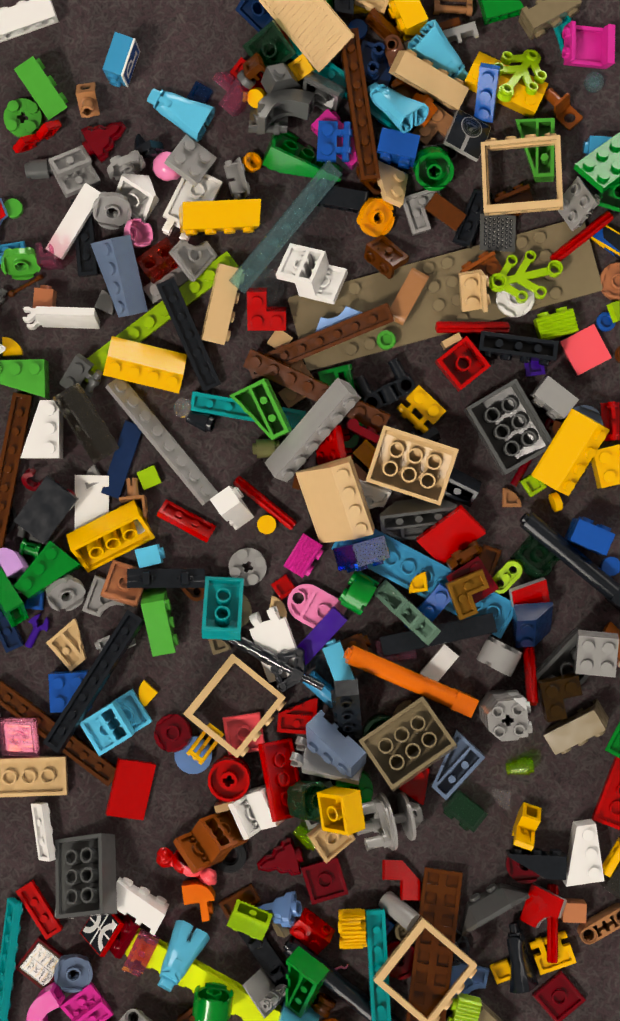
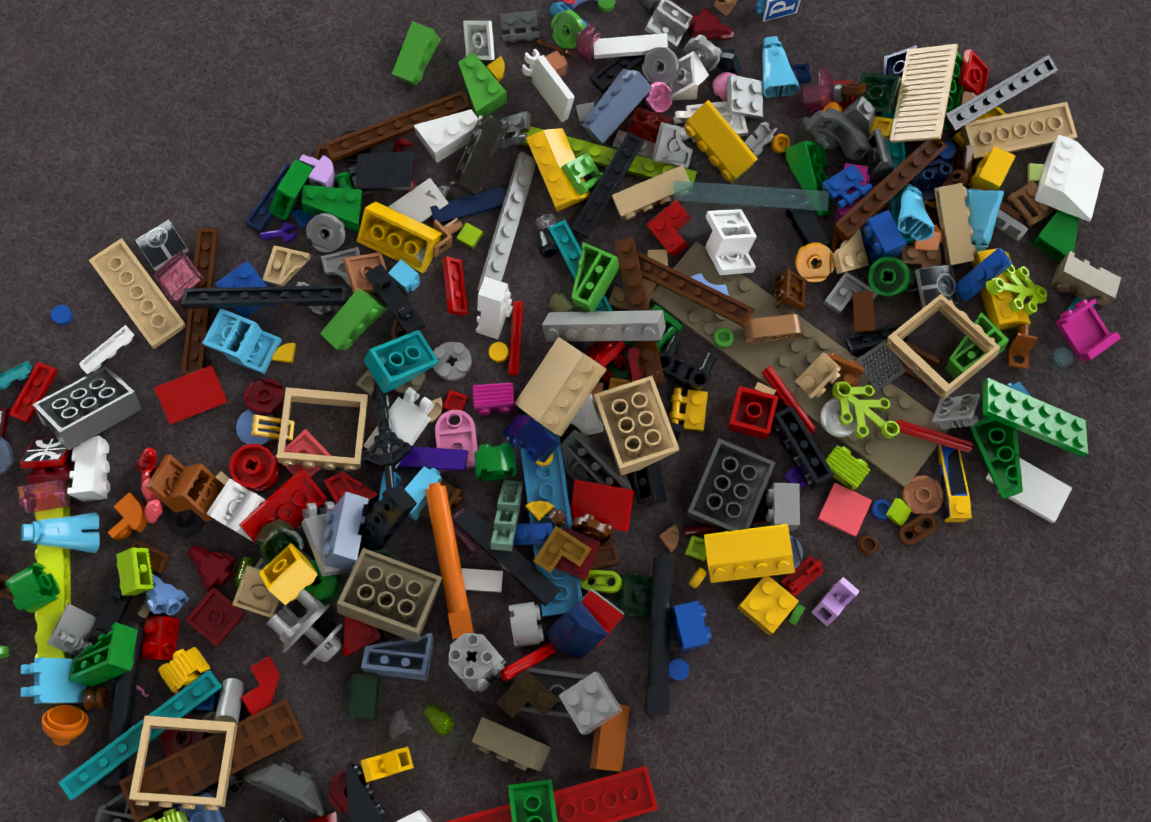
camera: 55 degrees right, 15 degrees down
(158, 348) = (580, 168): none -> bright green plate
(436, 575) = (558, 517): none -> reddish brown plate

